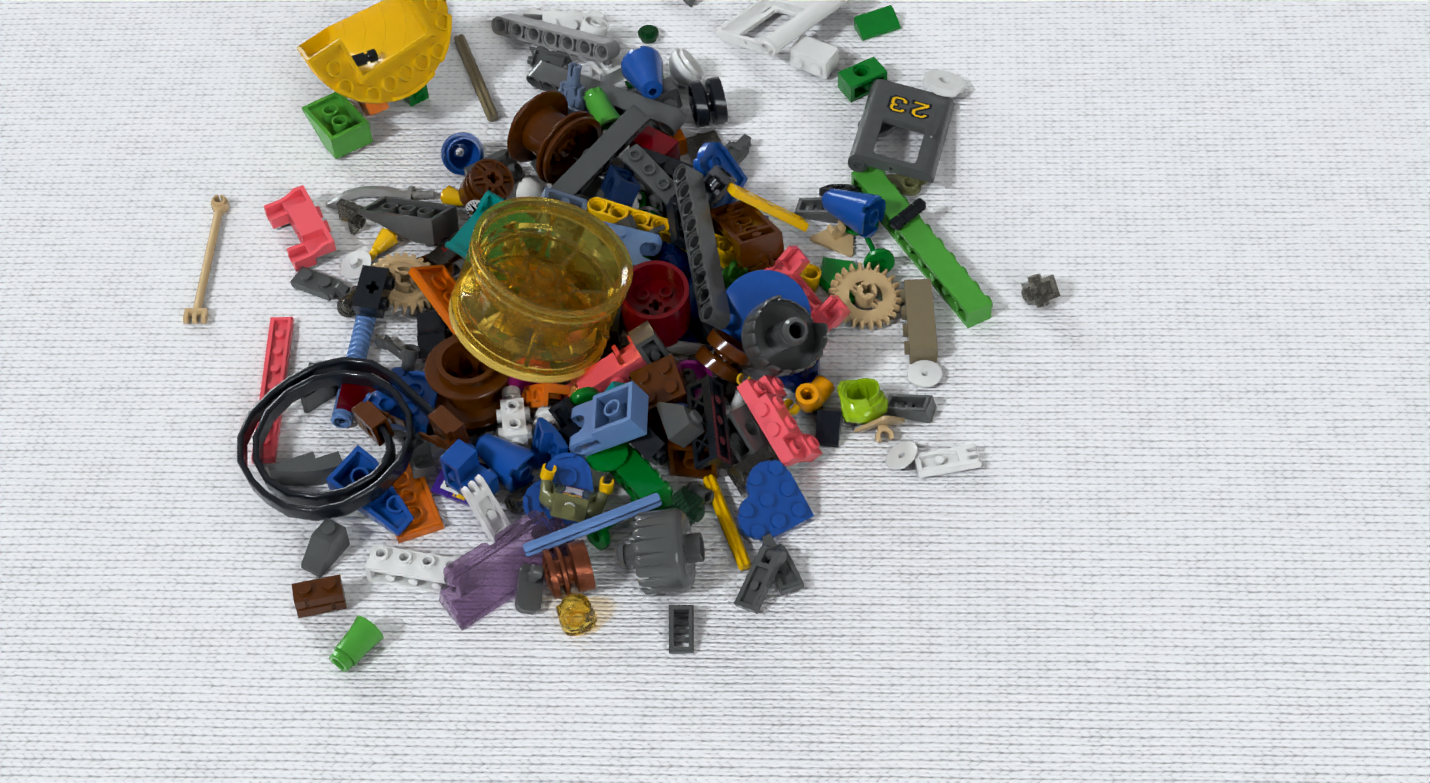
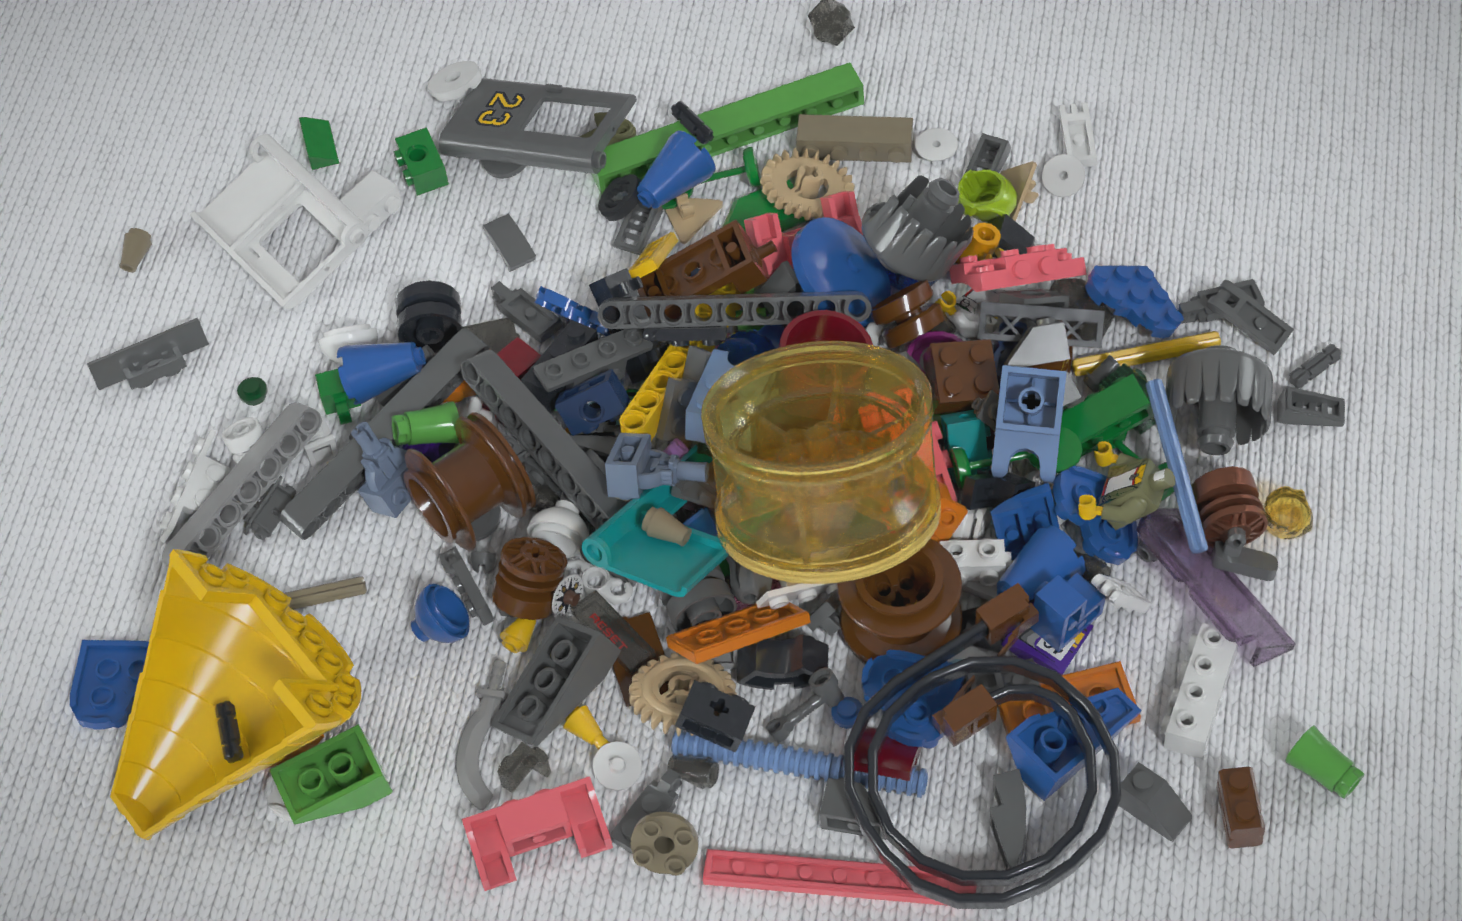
camera: 80 degrees left, 5 degrees up
(293, 289) = (664, 843): none -> dark tan plate
(724, 630) = (1315, 366): none -> dark grey axle
(797, 136) = (509, 242): none -> dark grey slope

